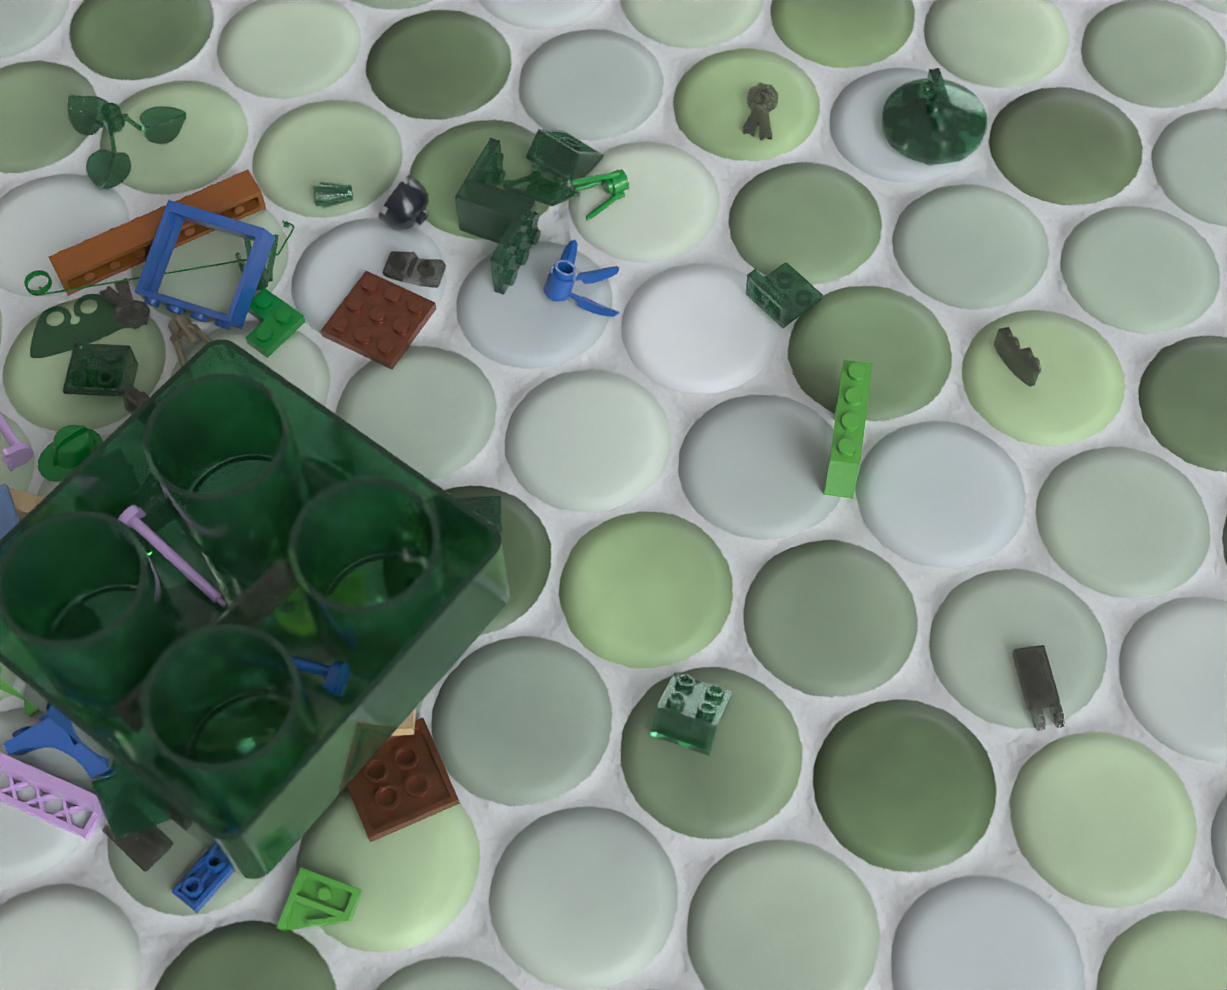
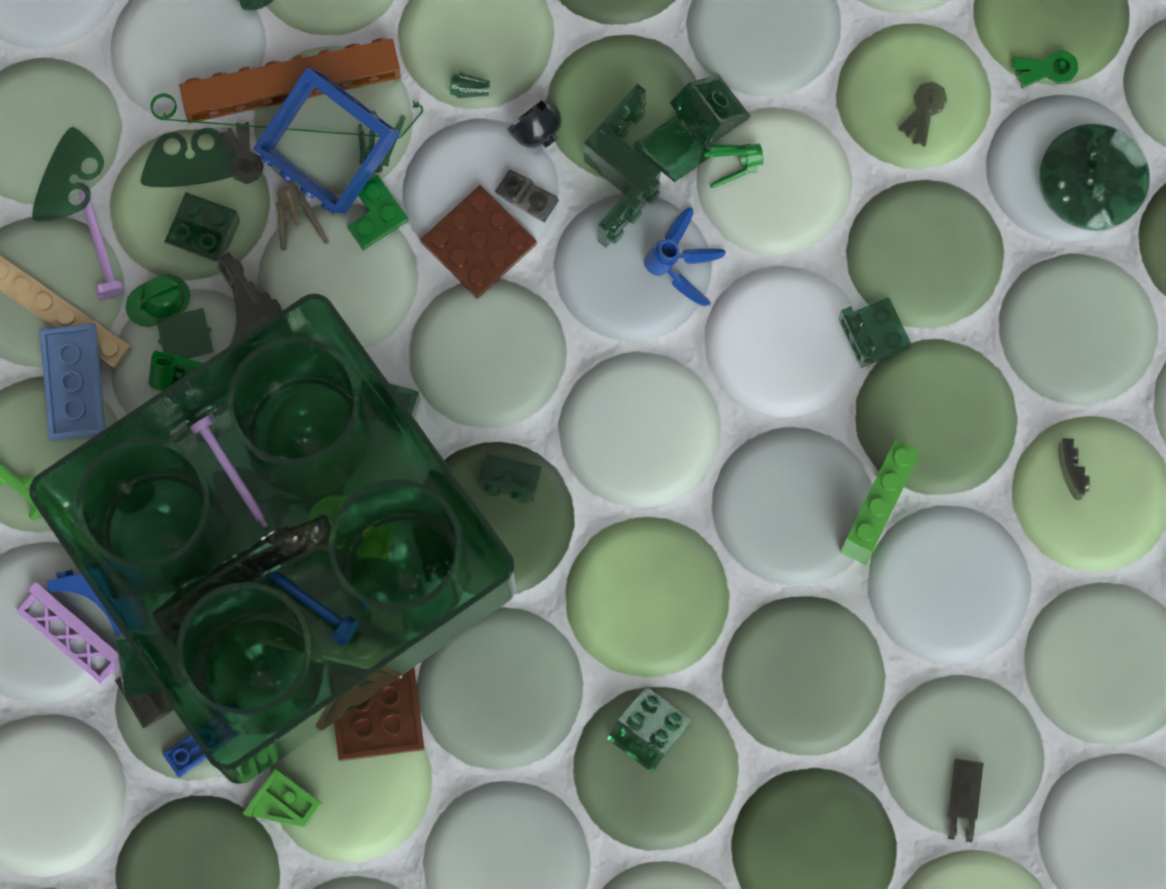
camera: 15 degrees right, 15 degrees up
(865, 48) = (1058, 67): none -> green piece

